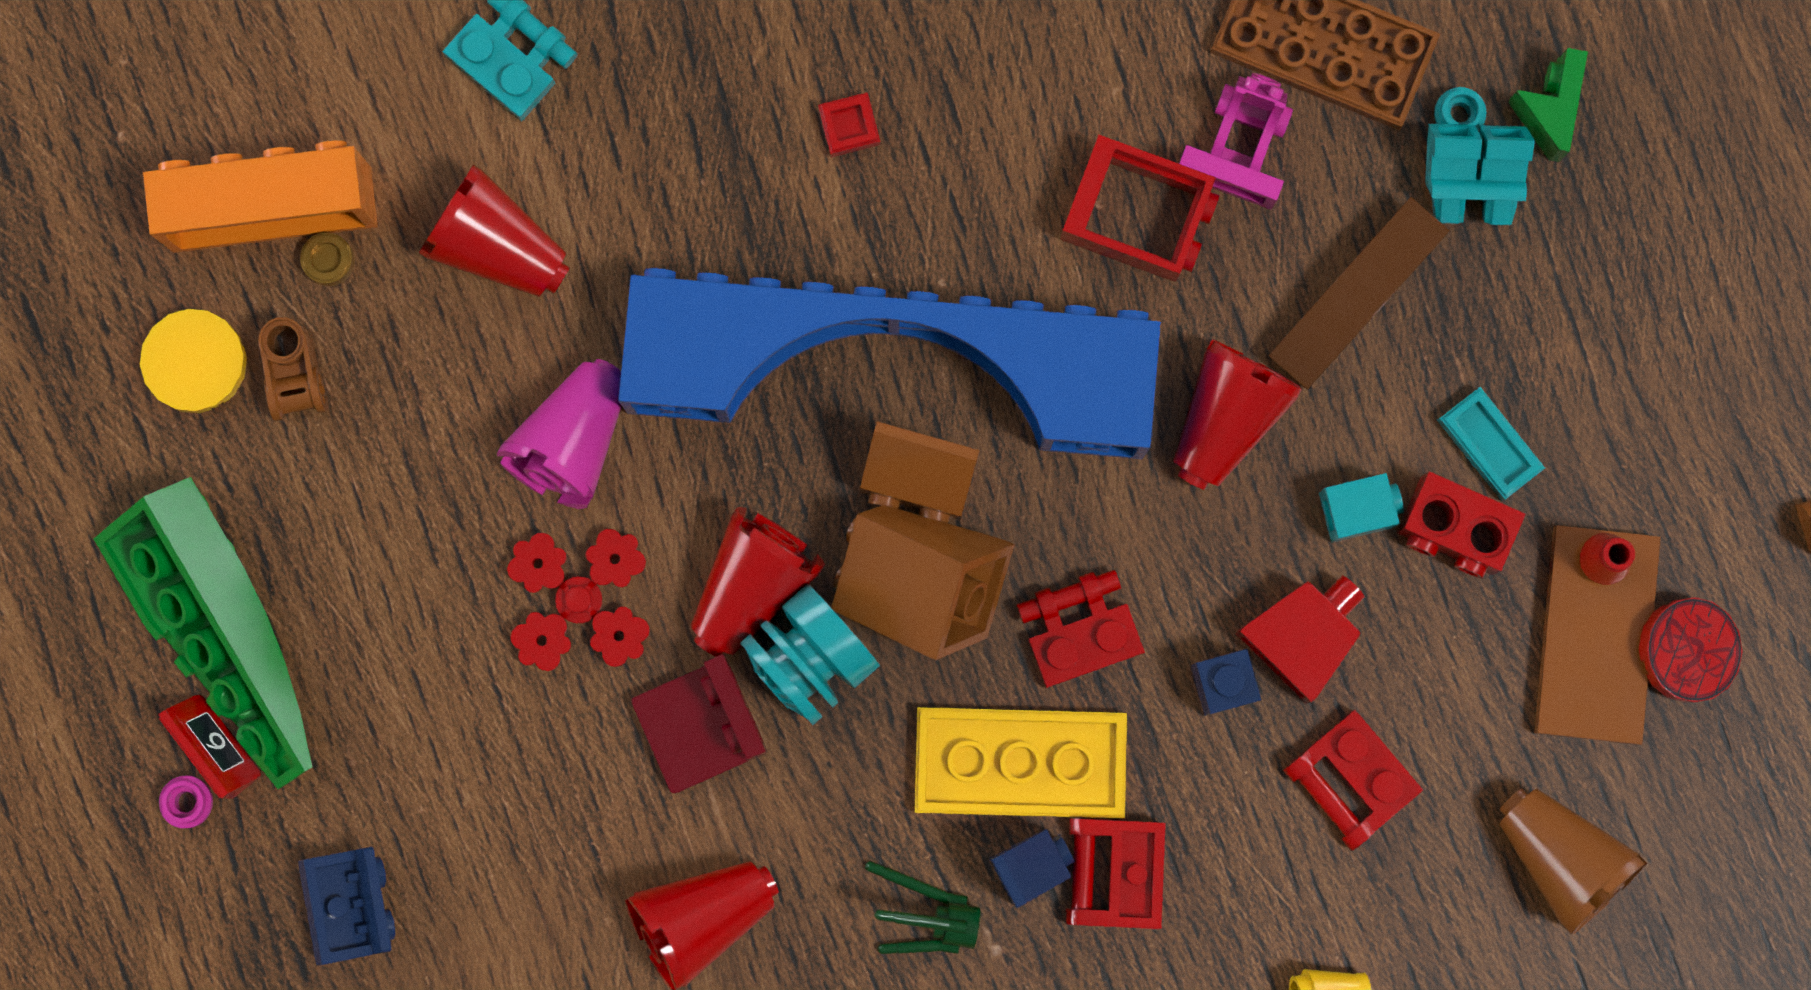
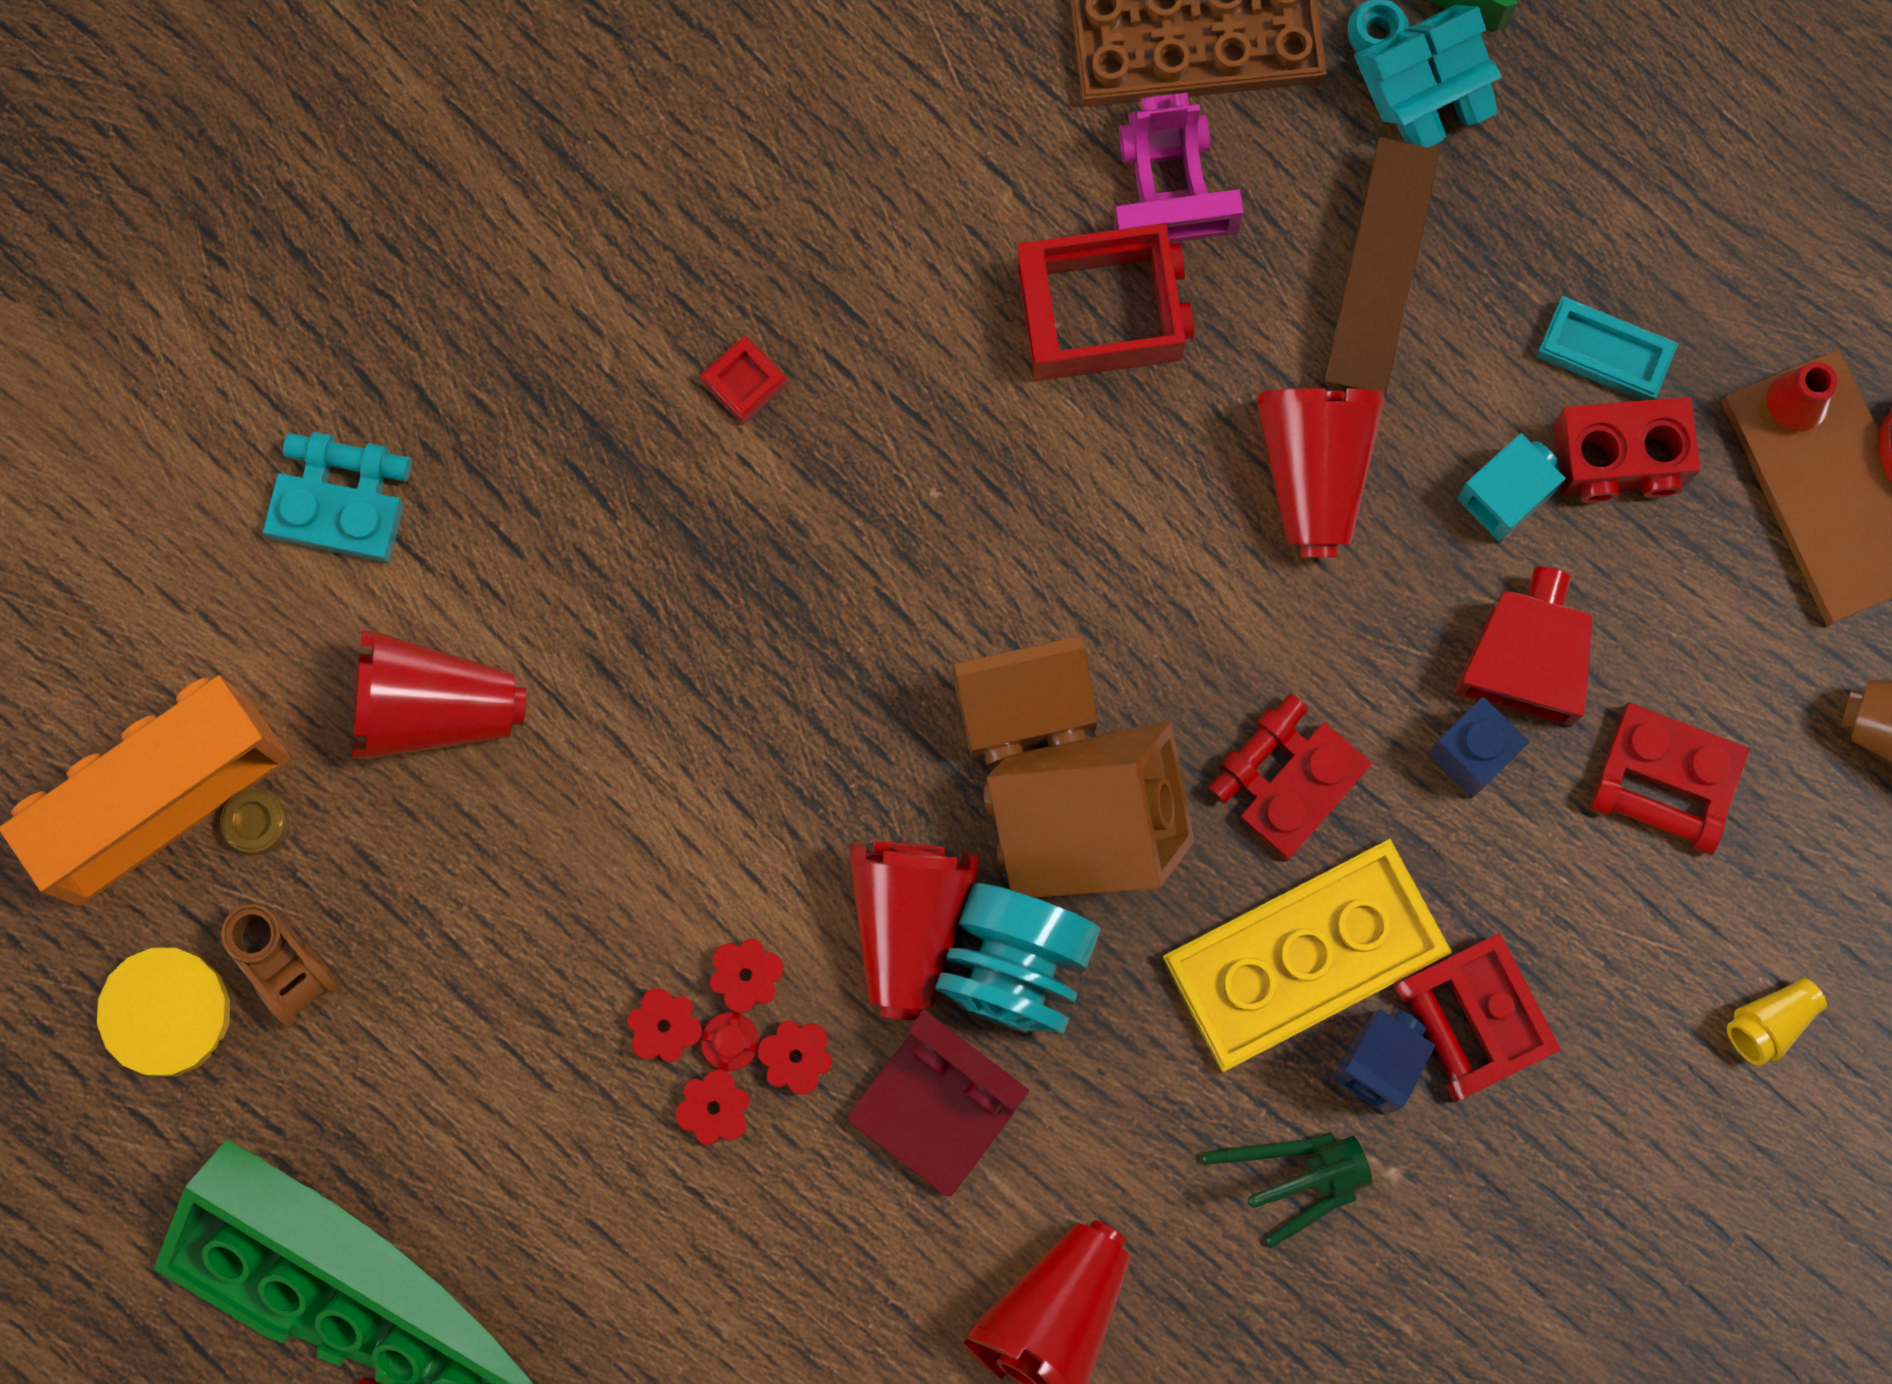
camera: 25 degrees left, 5 degrees down
(568, 436) = (623, 868): dark pink cone -> none
(709, 343) = (1130, 509): blue arch -> none

